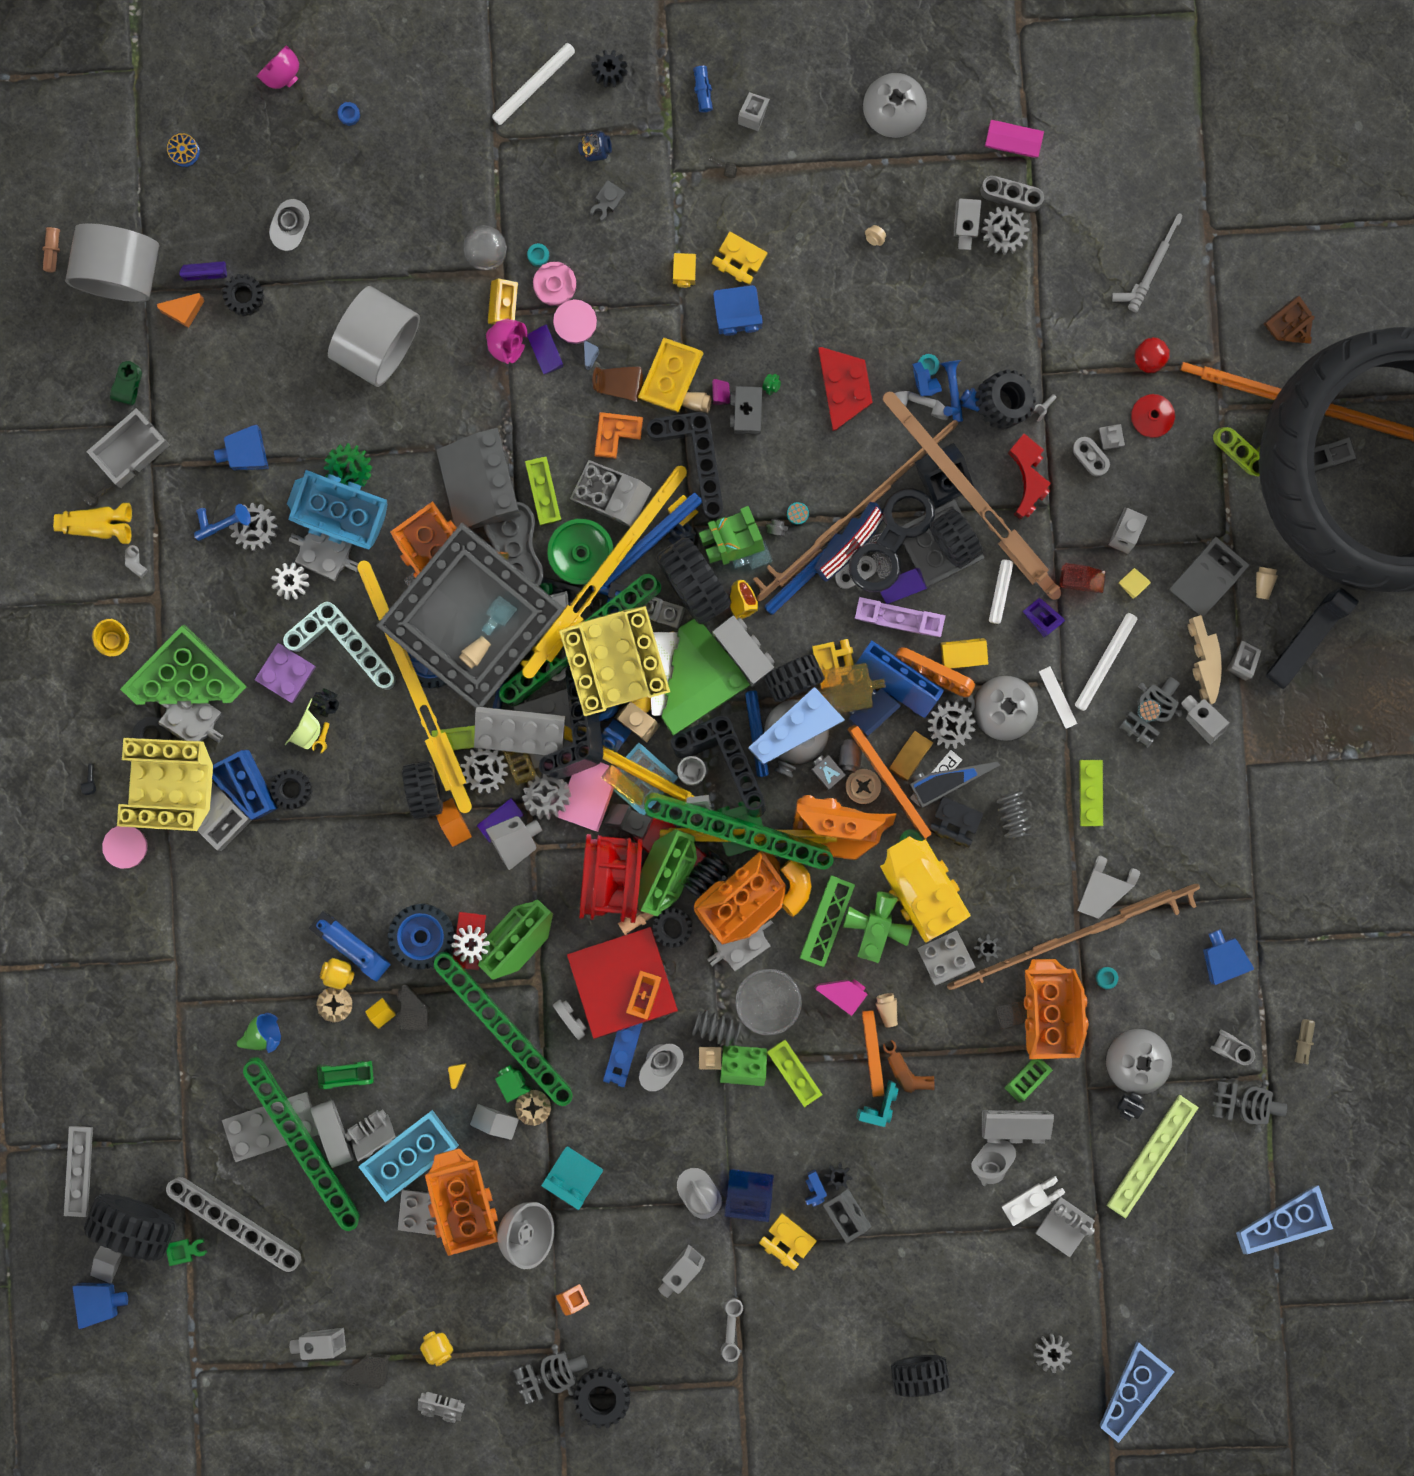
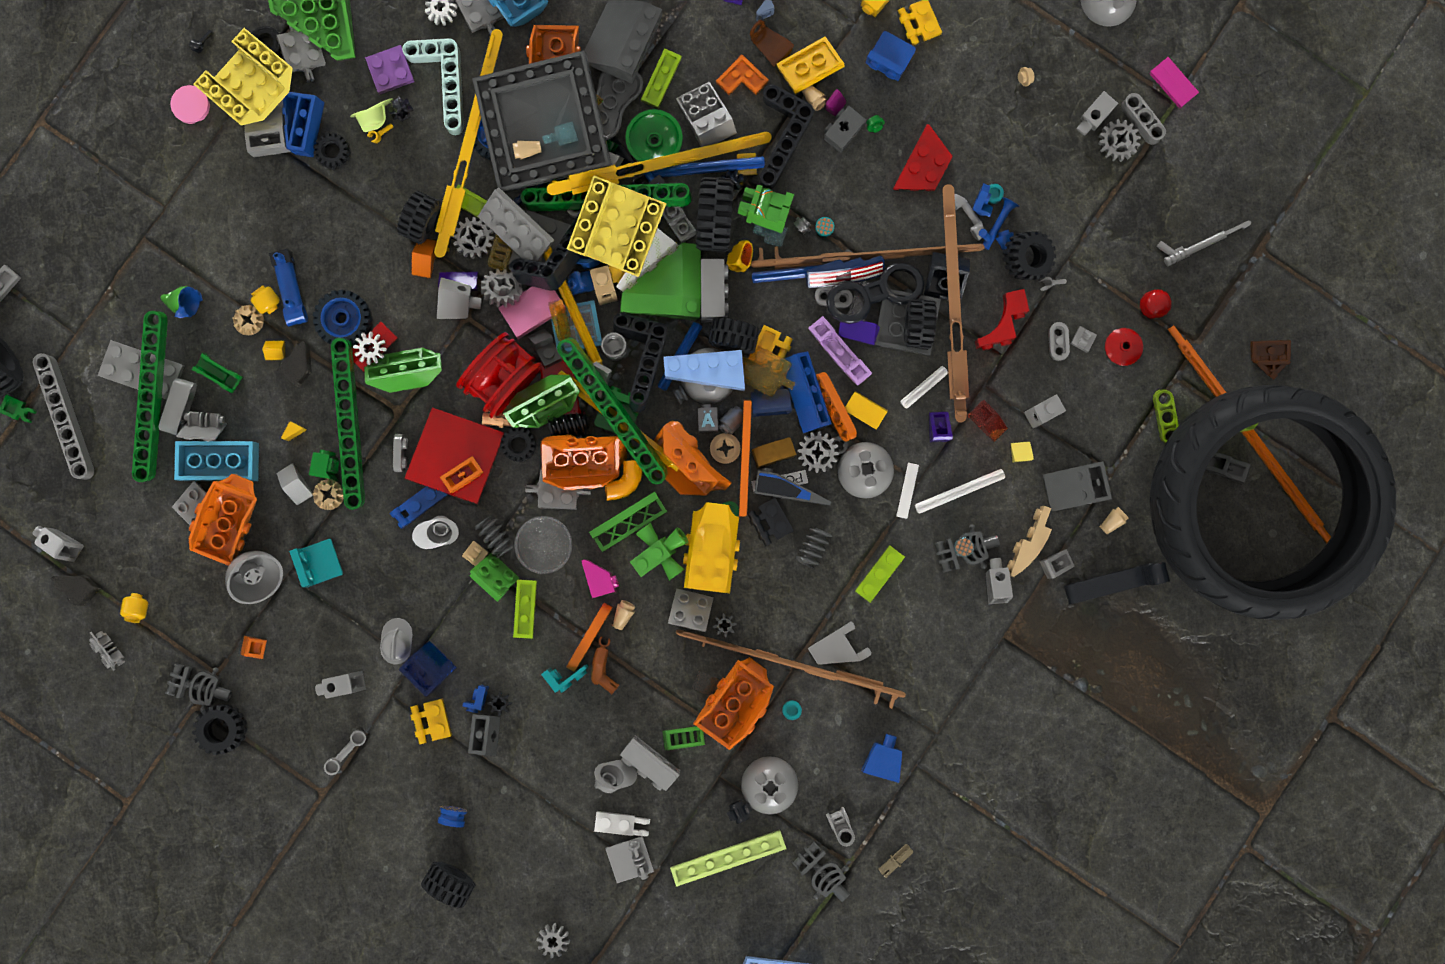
camera: 40 degrees right, 0 degrees up
(875, 1312) = (452, 816): none -> blue wheel

